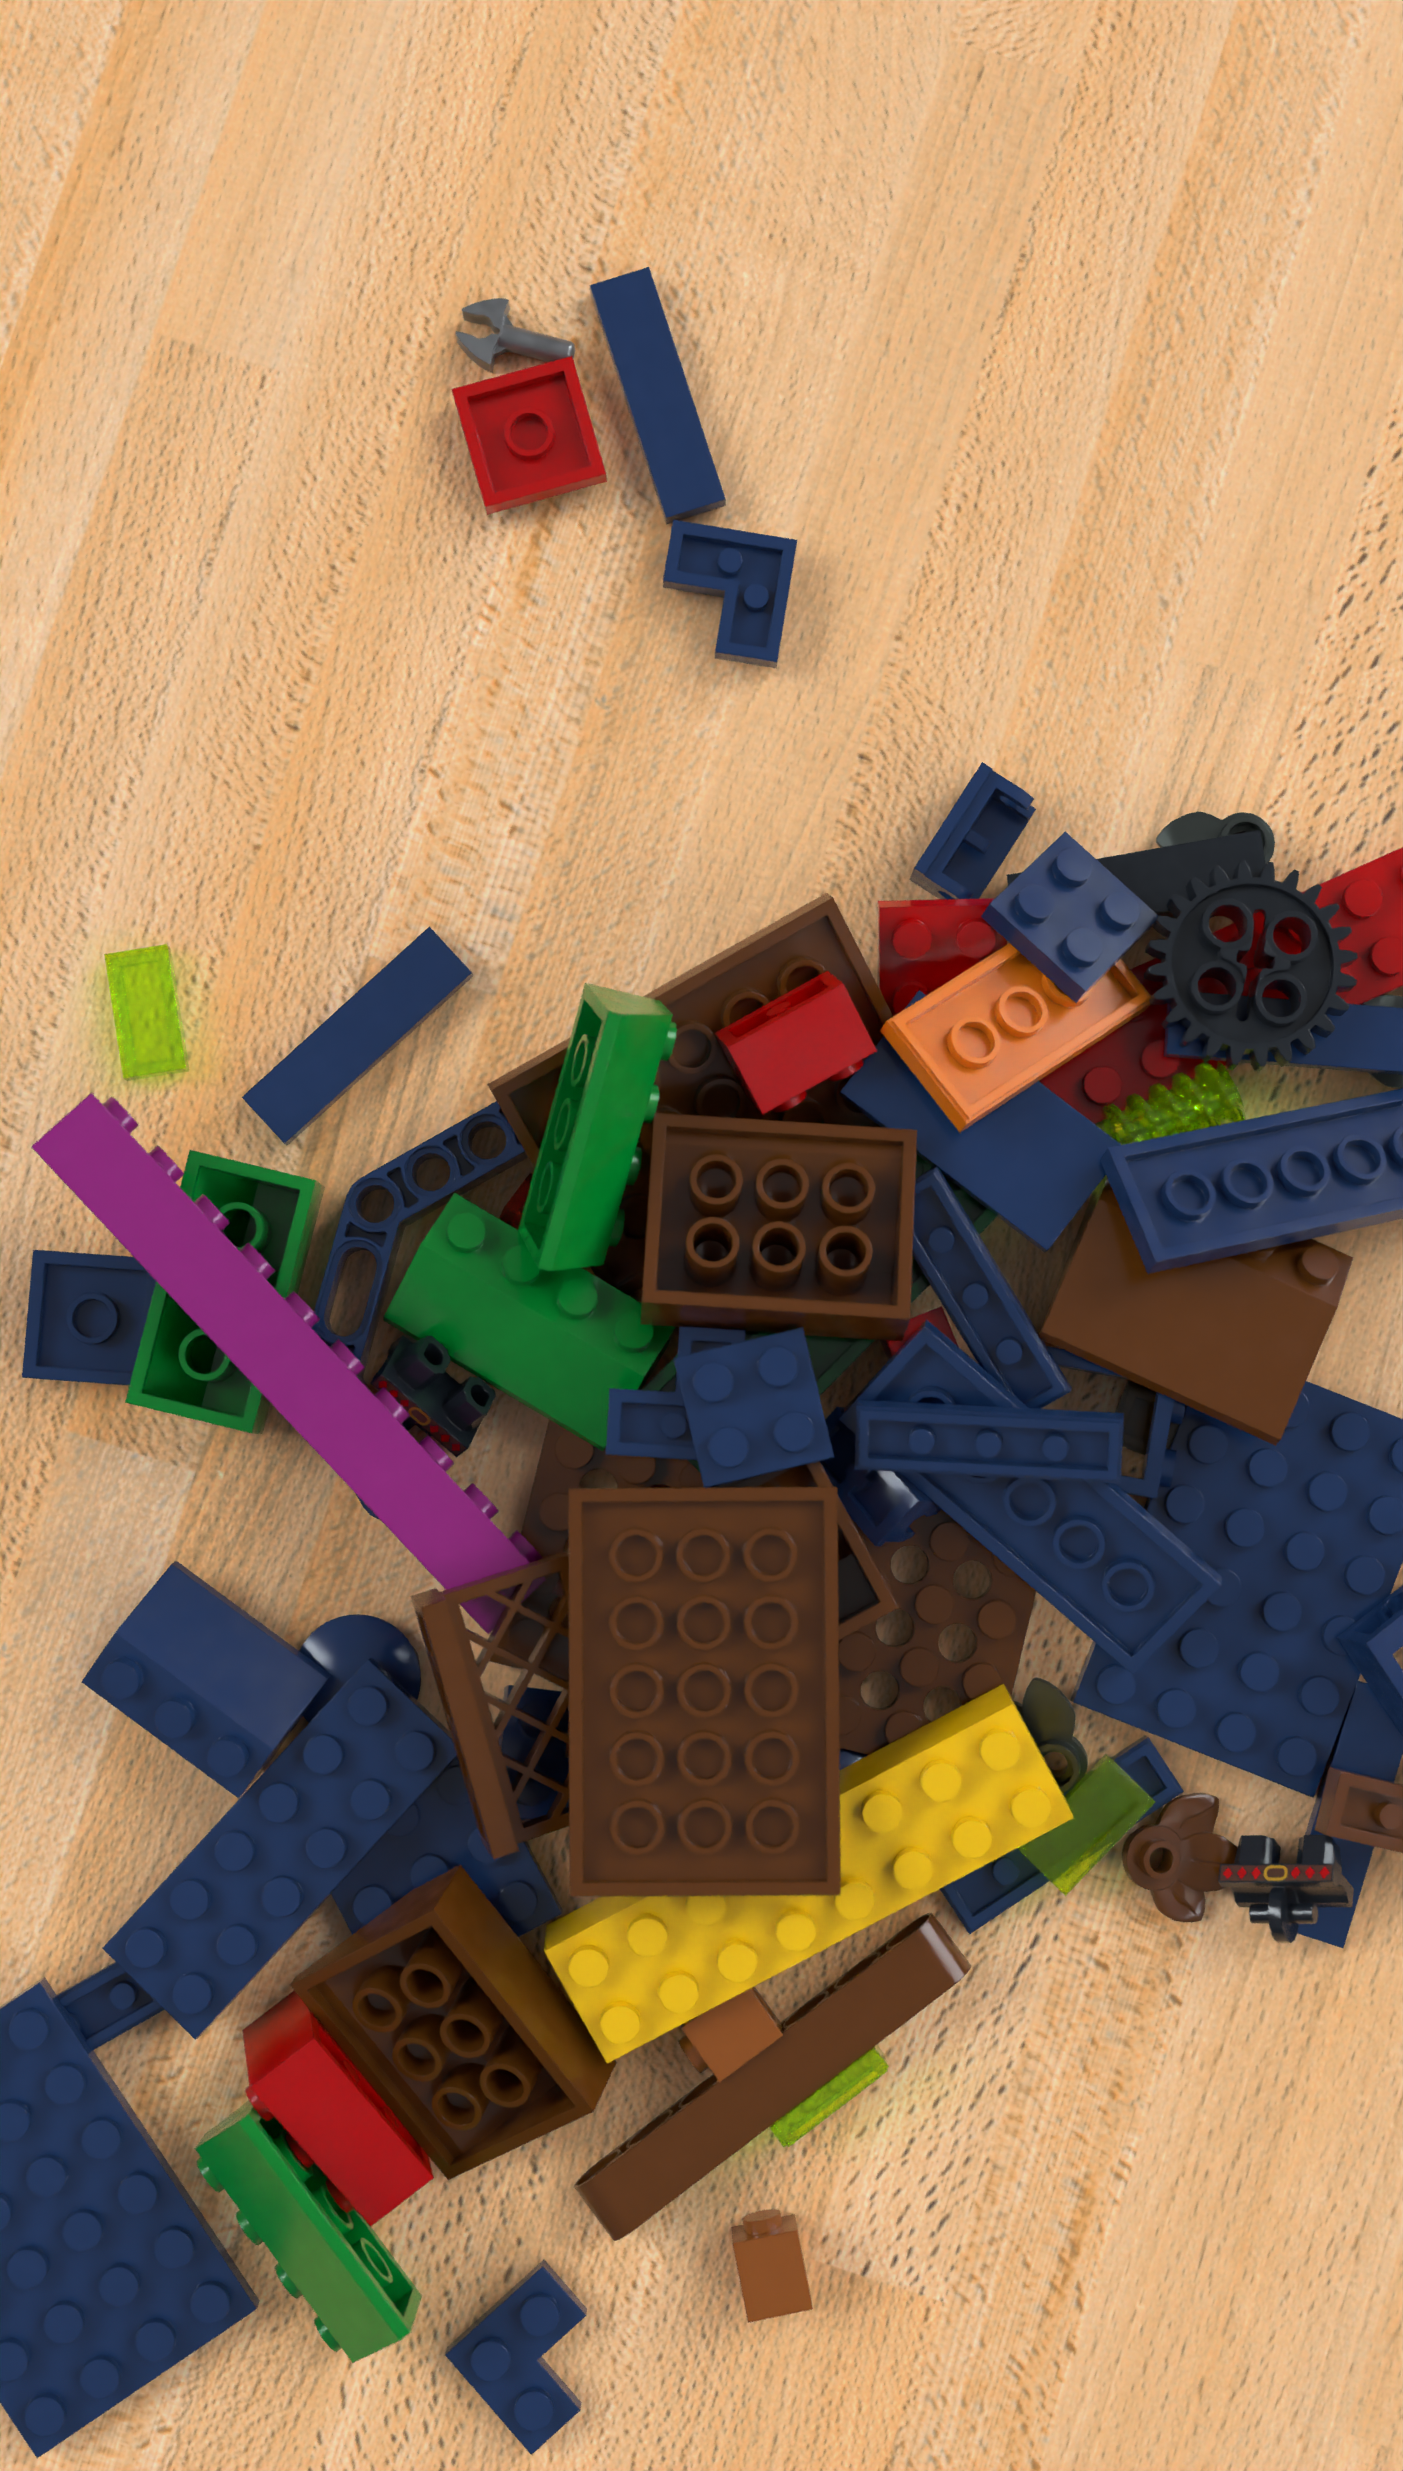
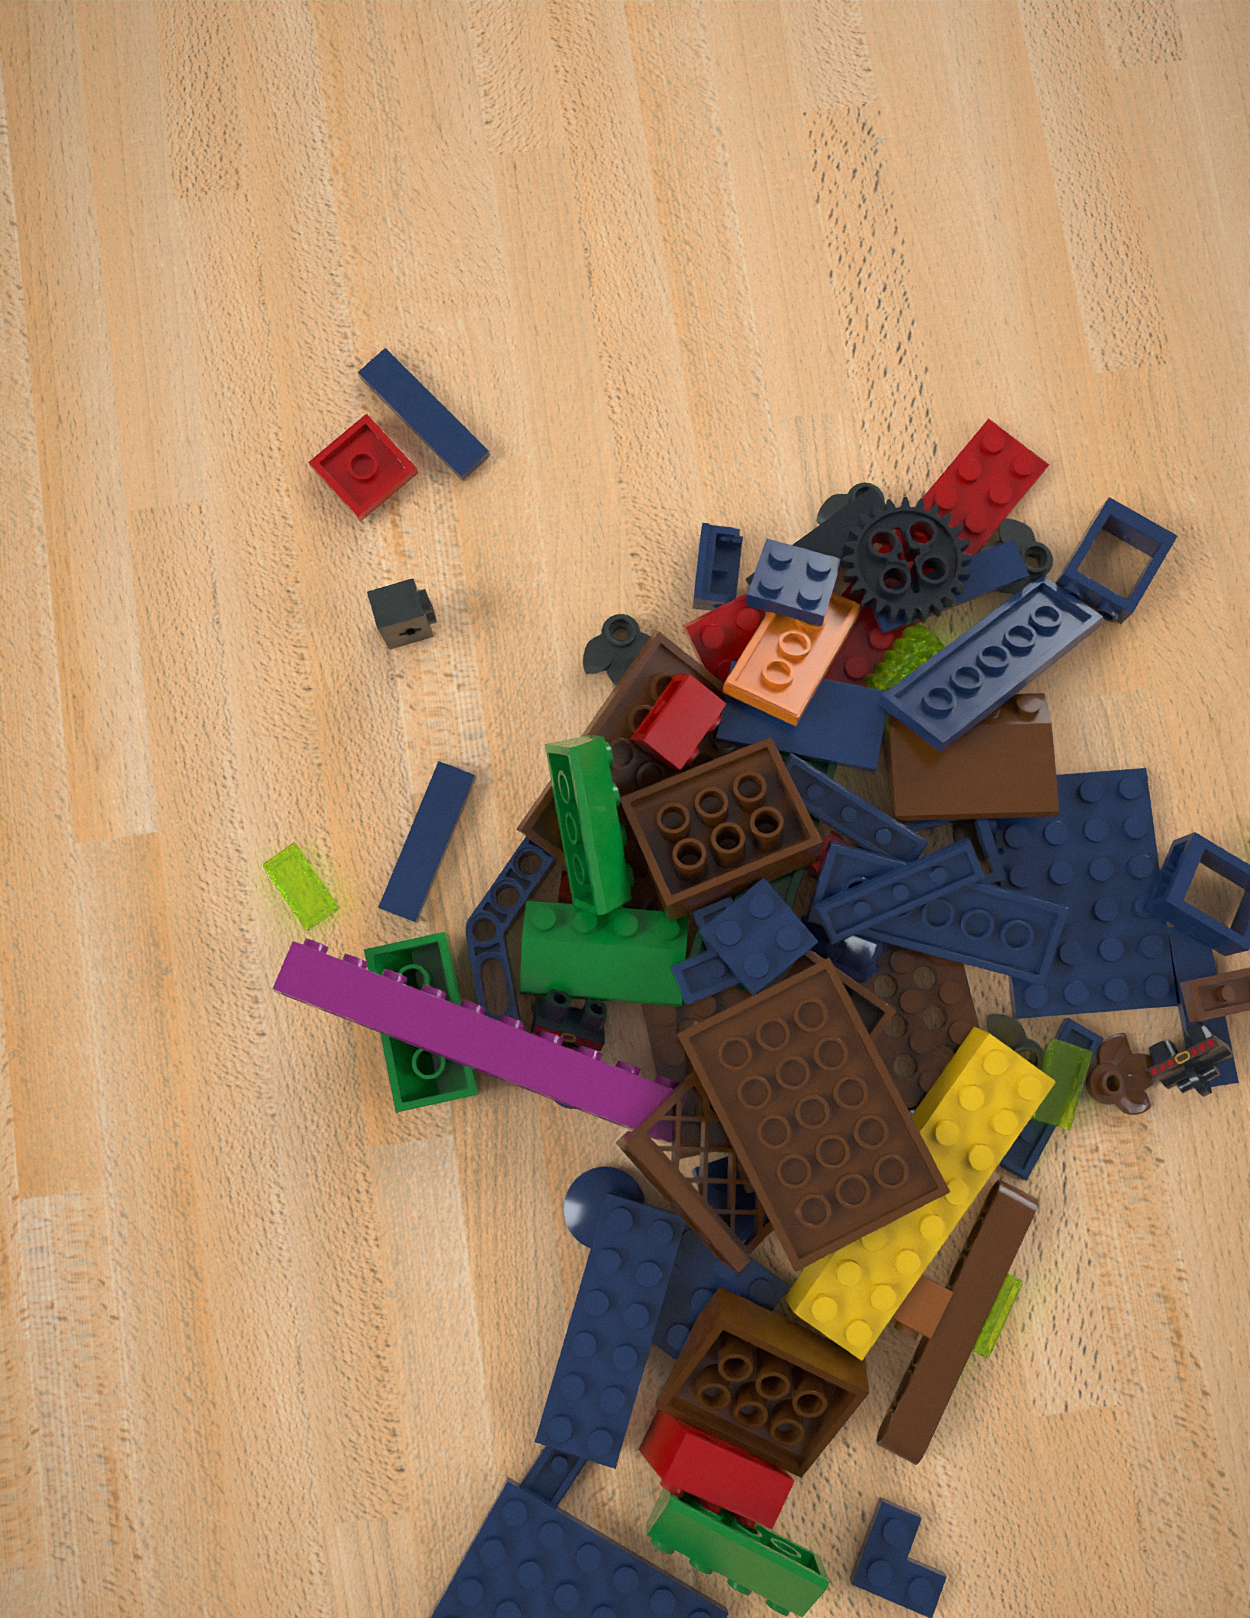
camera: 20 degrees left, 5 degrees down
(85, 1317) = (349, 1076): dark blue plate -> none
(206, 1679) = (518, 1251): dark blue slope -> none
(478, 685) = (402, 613): none -> pearl dark grey brick
(506, 337) = (324, 422): flat silver bar -> none
(749, 574) = (517, 484): dark blue plate -> none
(755, 890) = (614, 655): none -> pearl dark grey plate
(771, 2265) = (1013, 1433): dark orange brick -> none

